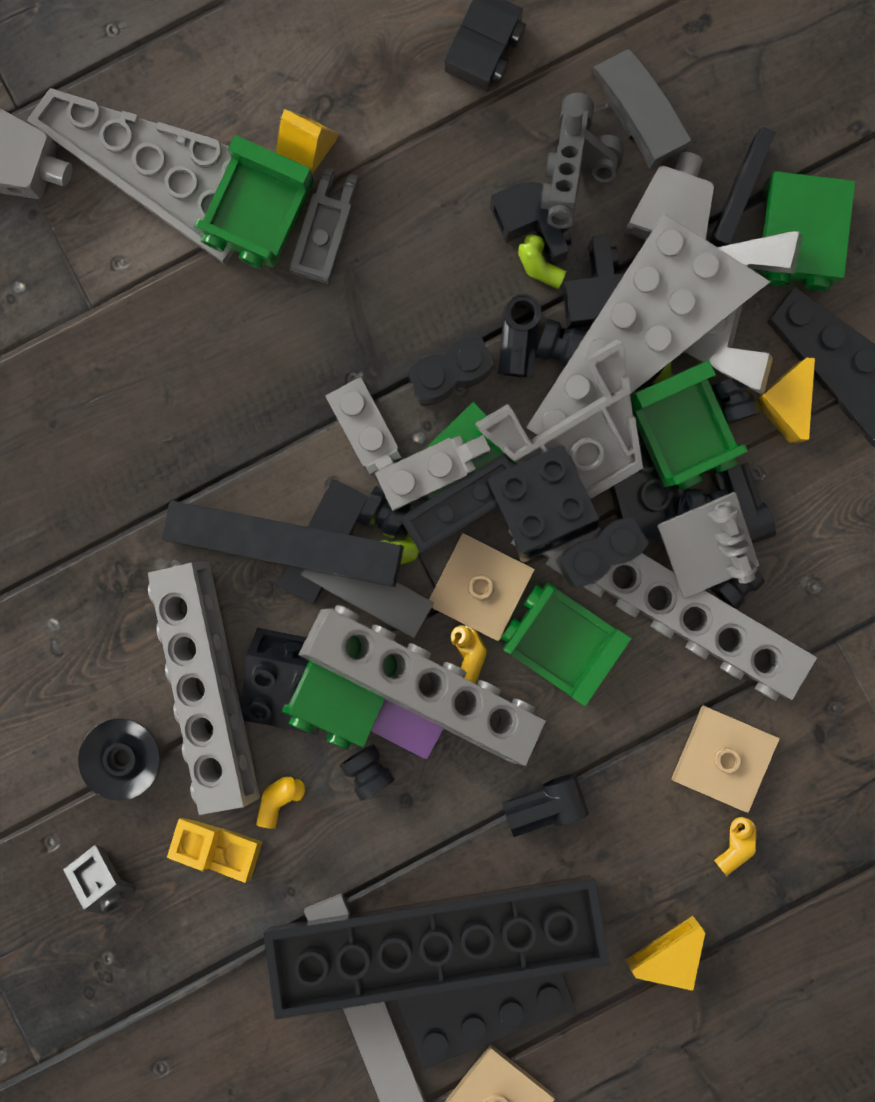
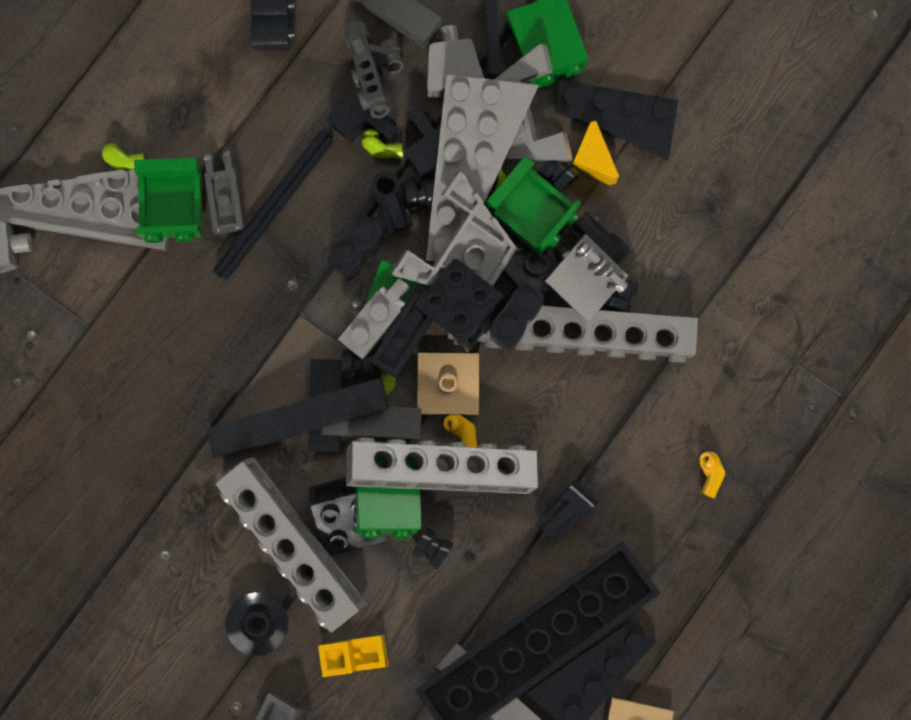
camera: 25 degrees left, 5 degrees down
(219, 125) = (118, 159): none -> lime arm
(276, 796) = (378, 596): yellow arm -> none
(304, 139) = (181, 141): yellow slope -> none
(364, 426) = (315, 313): light grey hinge -> none
(377, 271) = (273, 205): none -> black axle
(406, 729) = (445, 504): medium lavender slope -> none
(564, 642) = (523, 393): green panel -> none
(672, 957) = (704, 572): yellow slope -> none
(725, 759) = (673, 418): tan plate -> none

